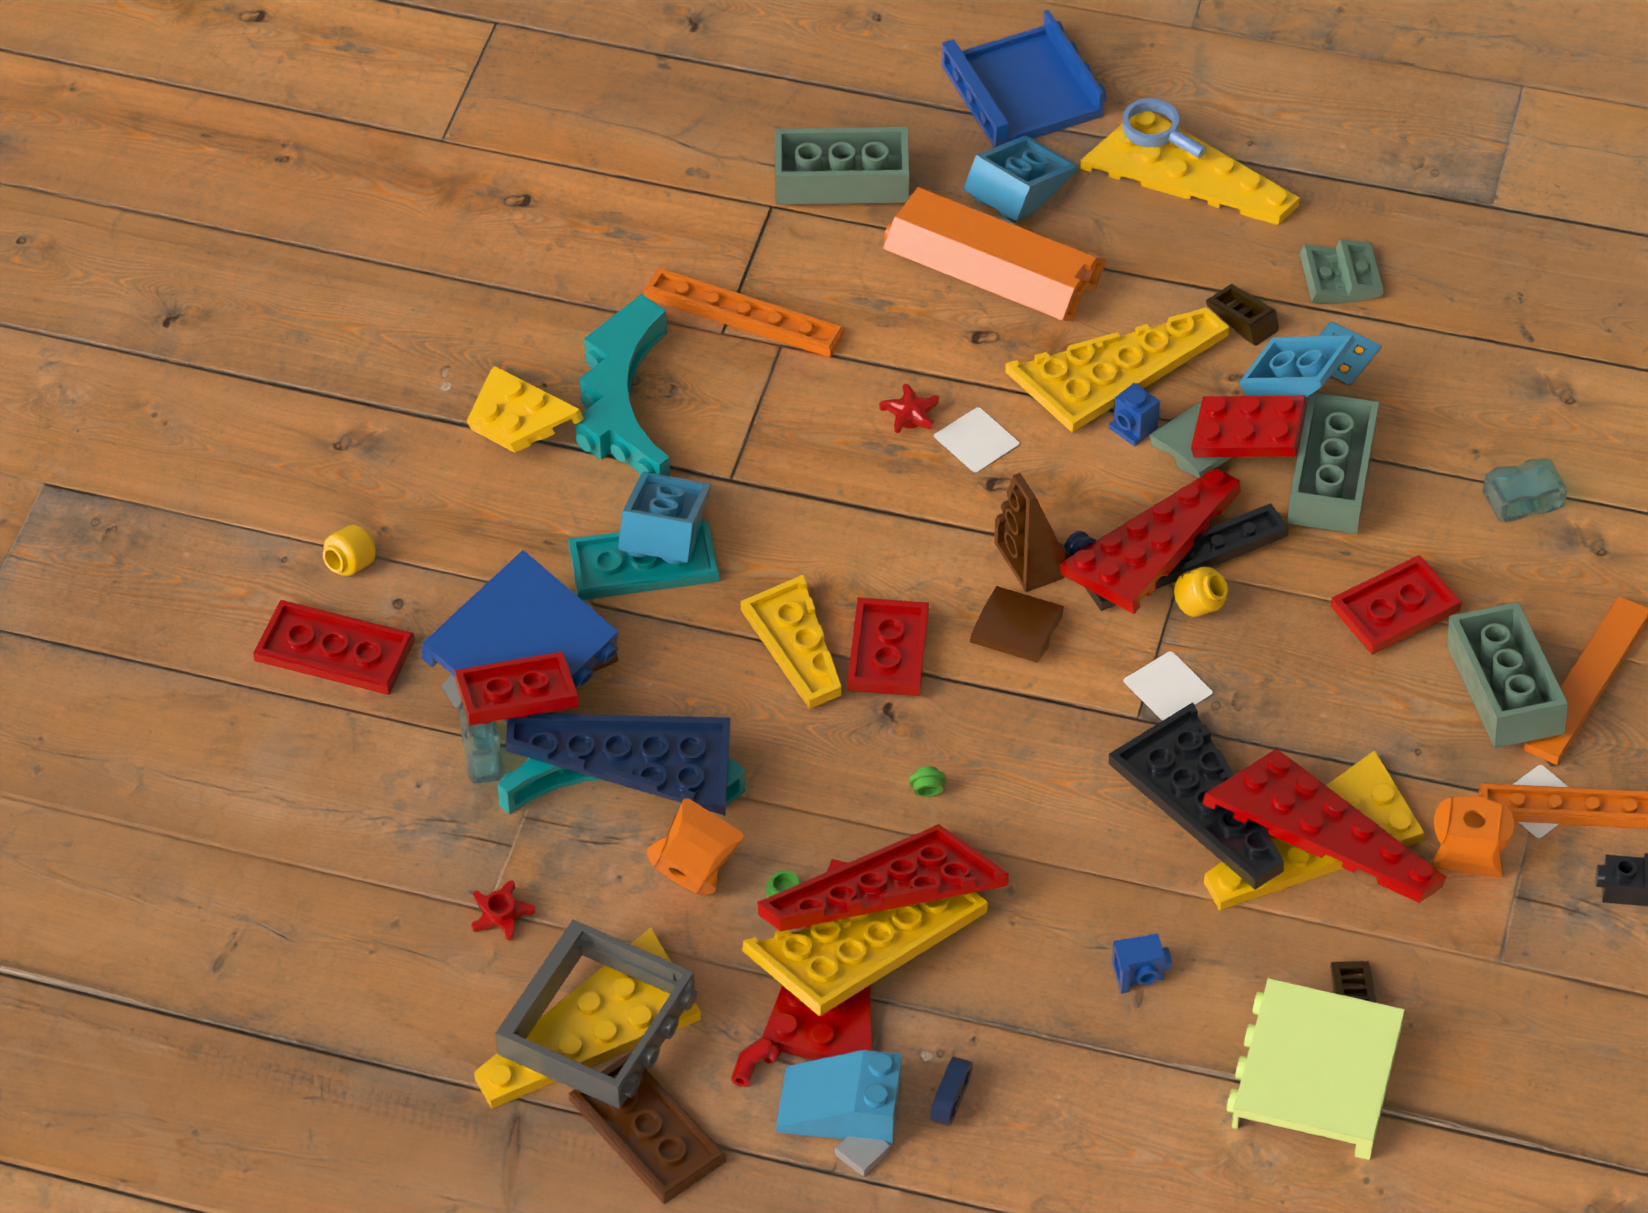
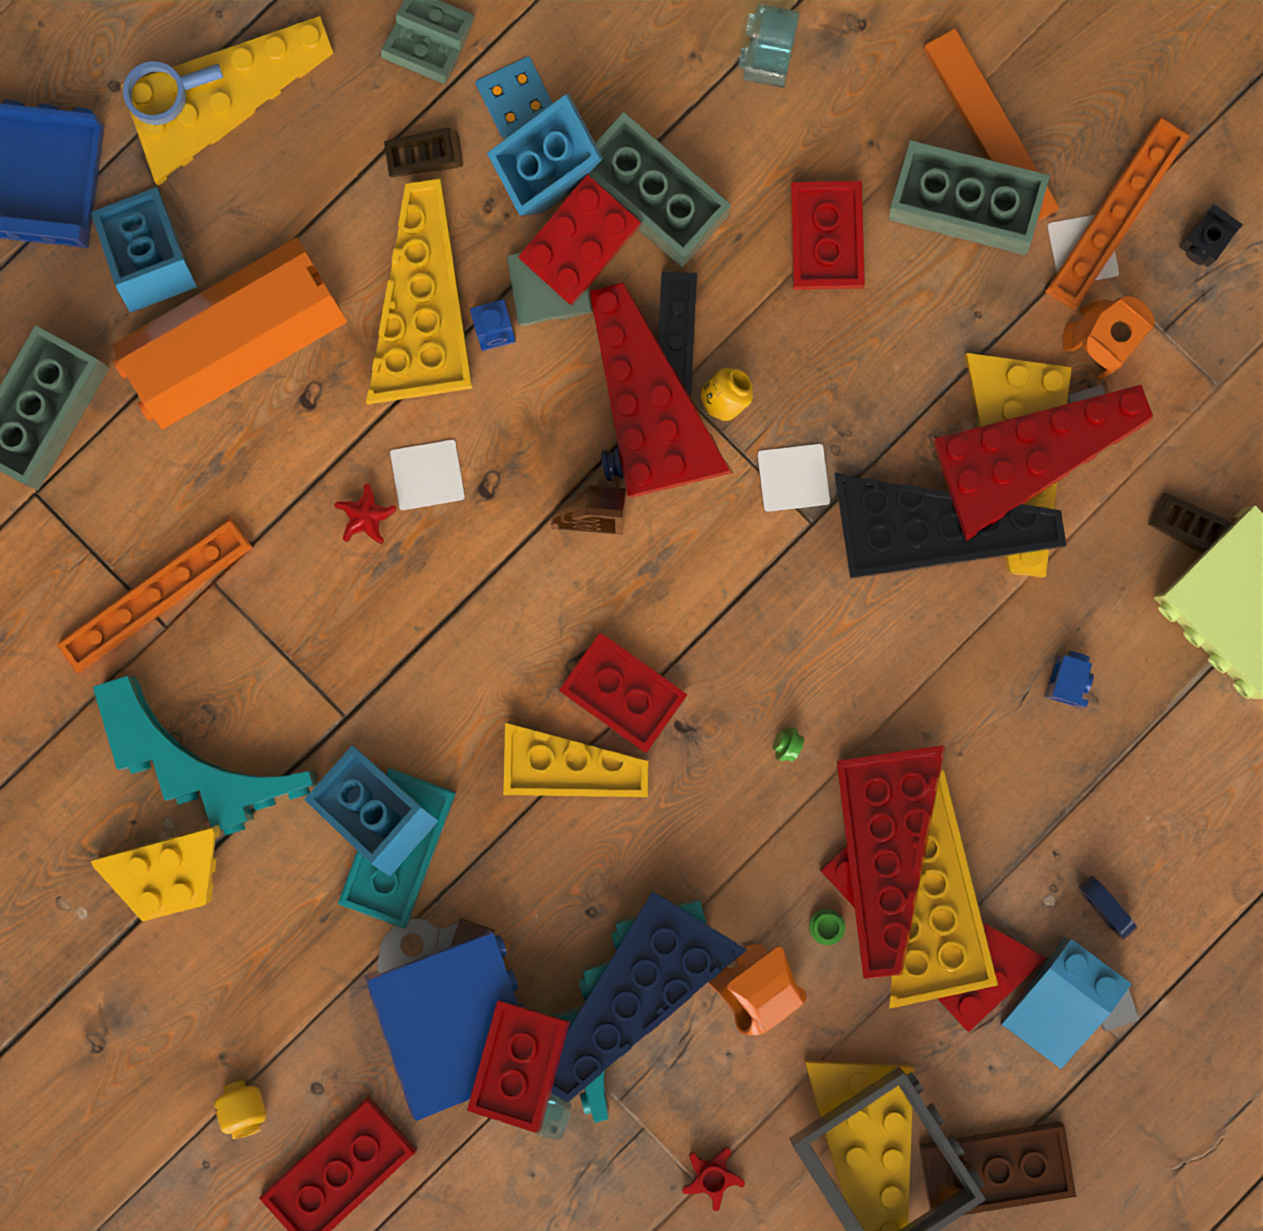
camera: 65 degrees left, 35 degrees up
(750, 1056) = (979, 1048): red arm -> none
(1016, 624) = (662, 567): reddish brown slope -> none

